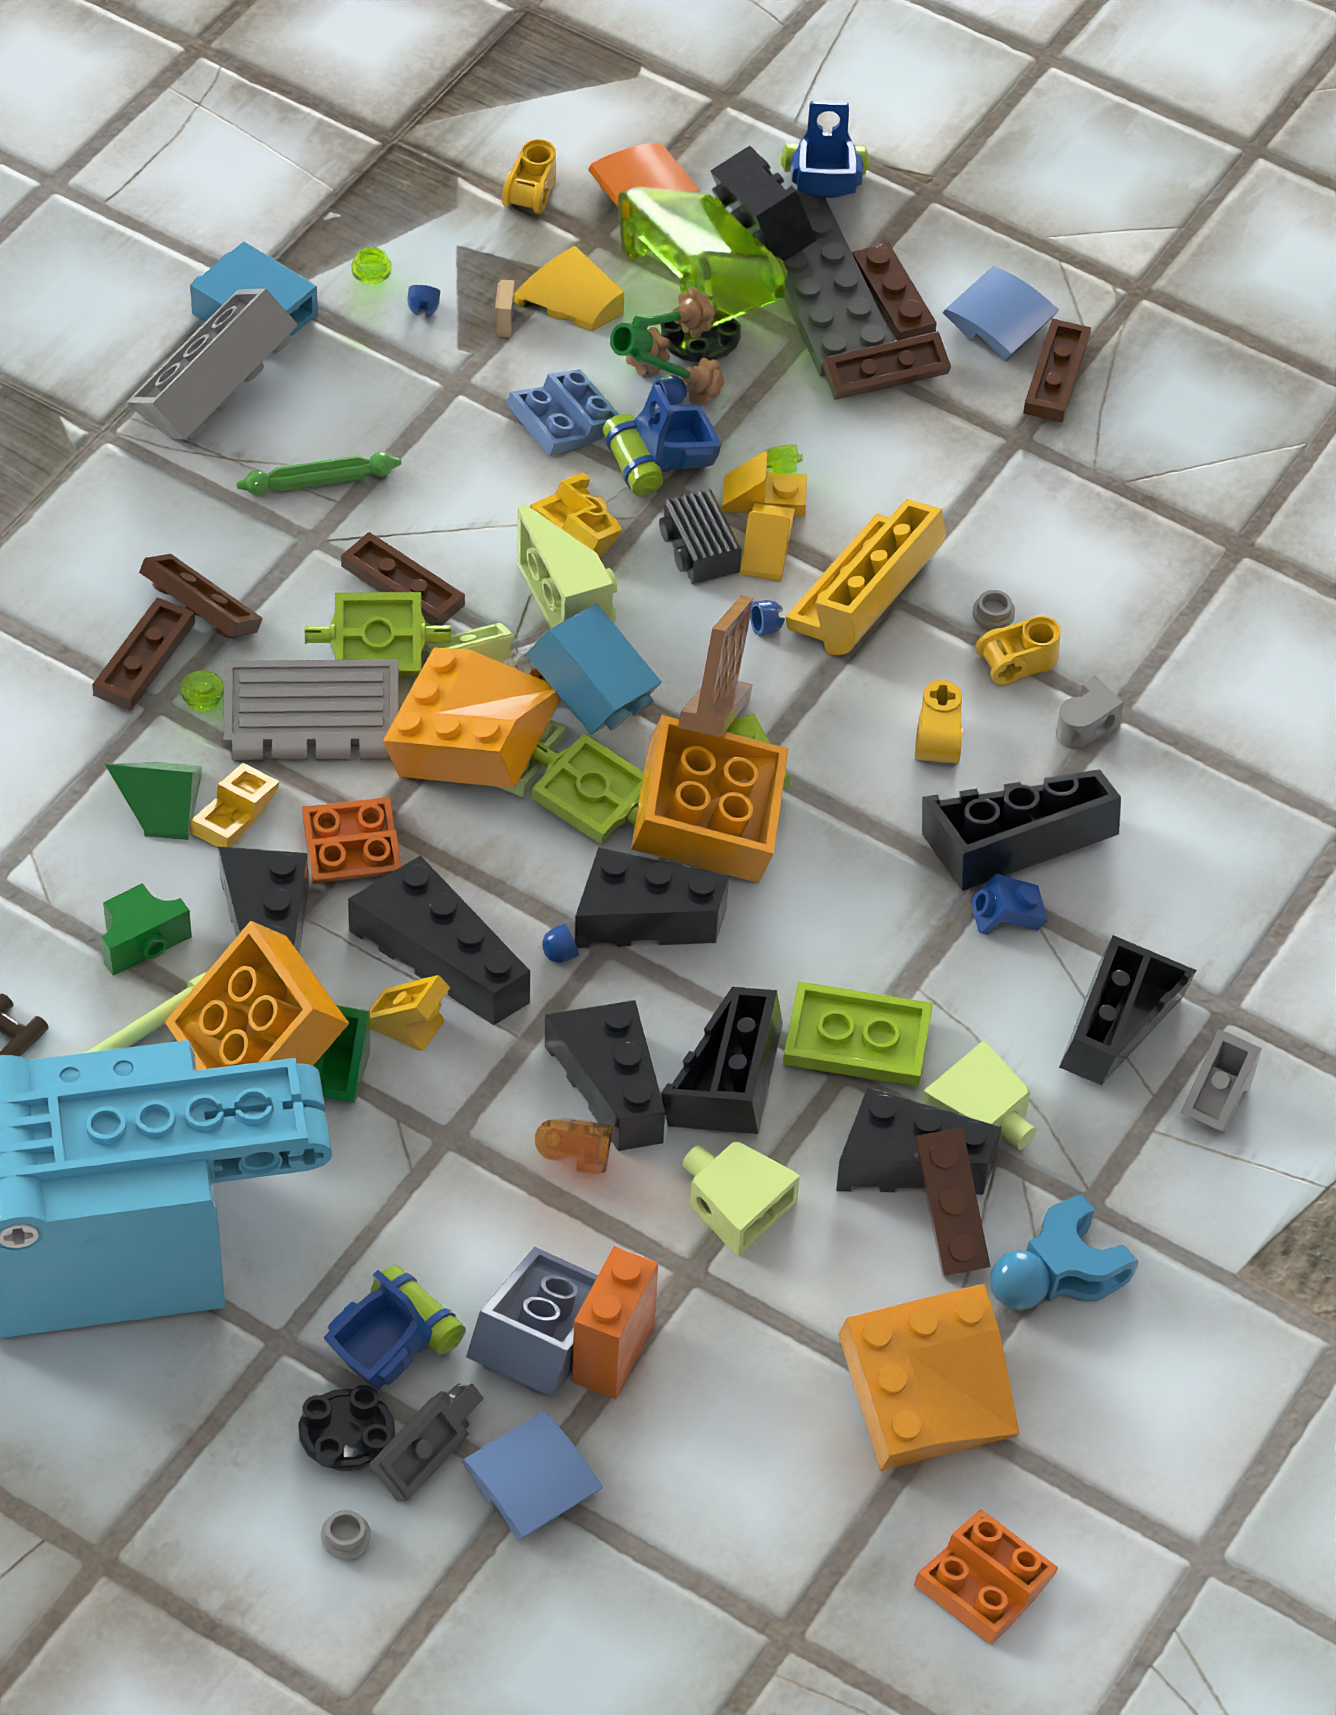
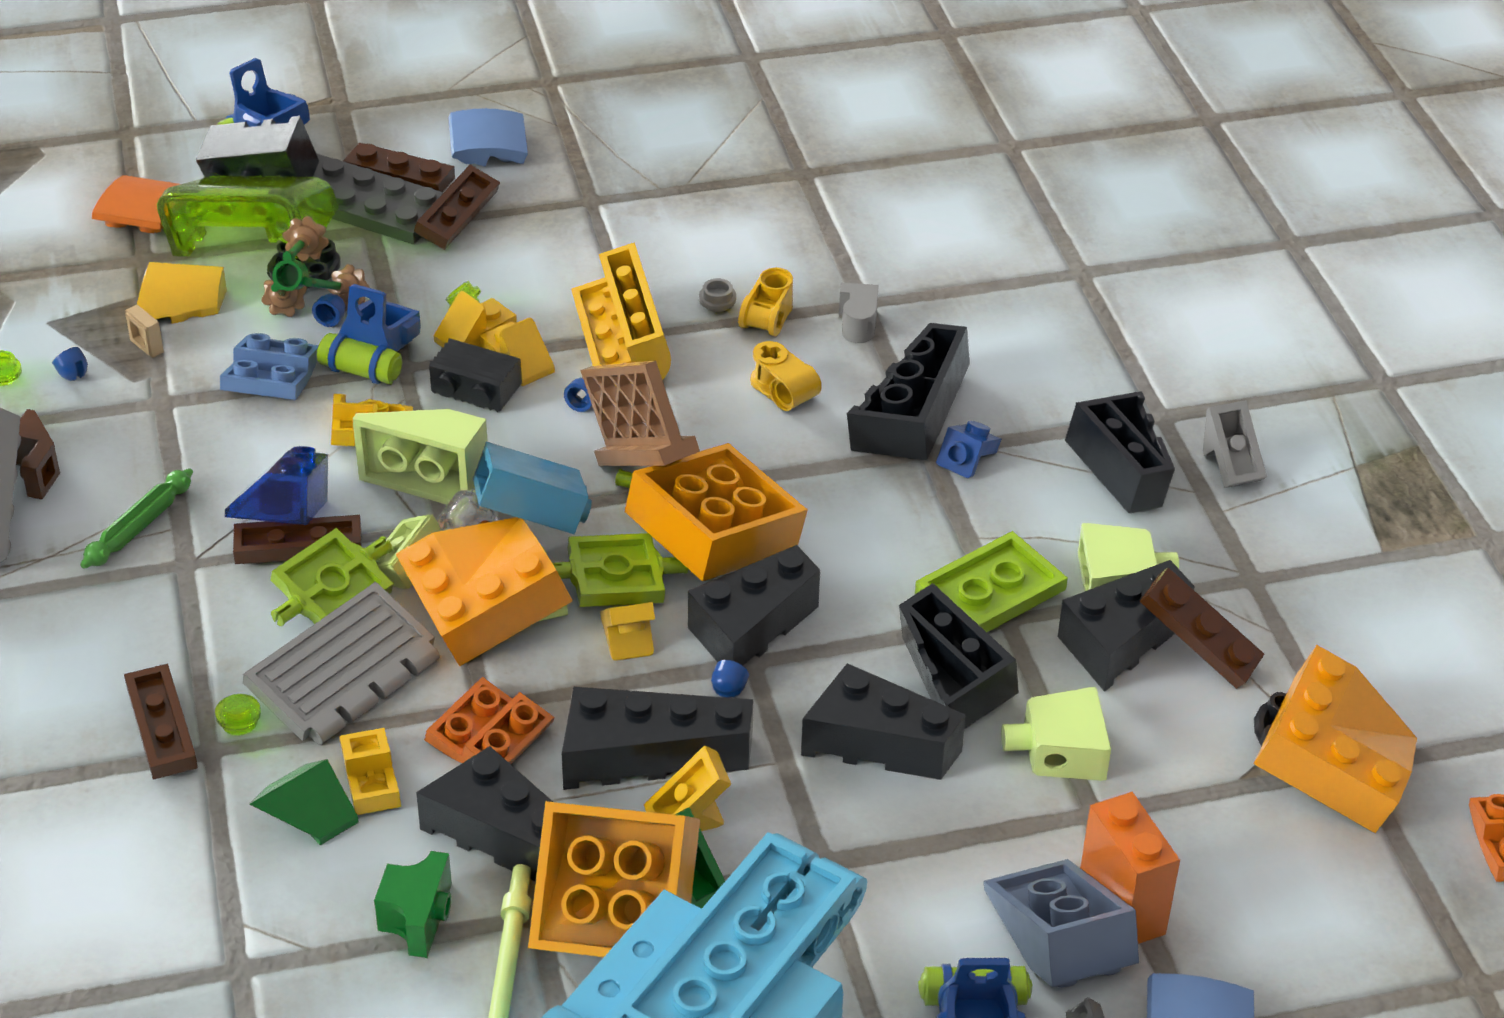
camera: 45 degrees left, 10 degrees down
(200, 596) = (115, 655): reddish brown plate -> none
(304, 374) = (36, 456): none -> reddish brown slope
(431, 533) = (287, 490): none -> clear blue slope
(531, 176) = (56, 244): yellow piece -> none
(541, 843) = (629, 630): none -> yellow slope
(578, 1139) = (917, 788): clear orange leg -> none
(1057, 370) = (567, 146): reddish brown plate -> none
(1061, 1262) = (1296, 616): dark azure piece -> none

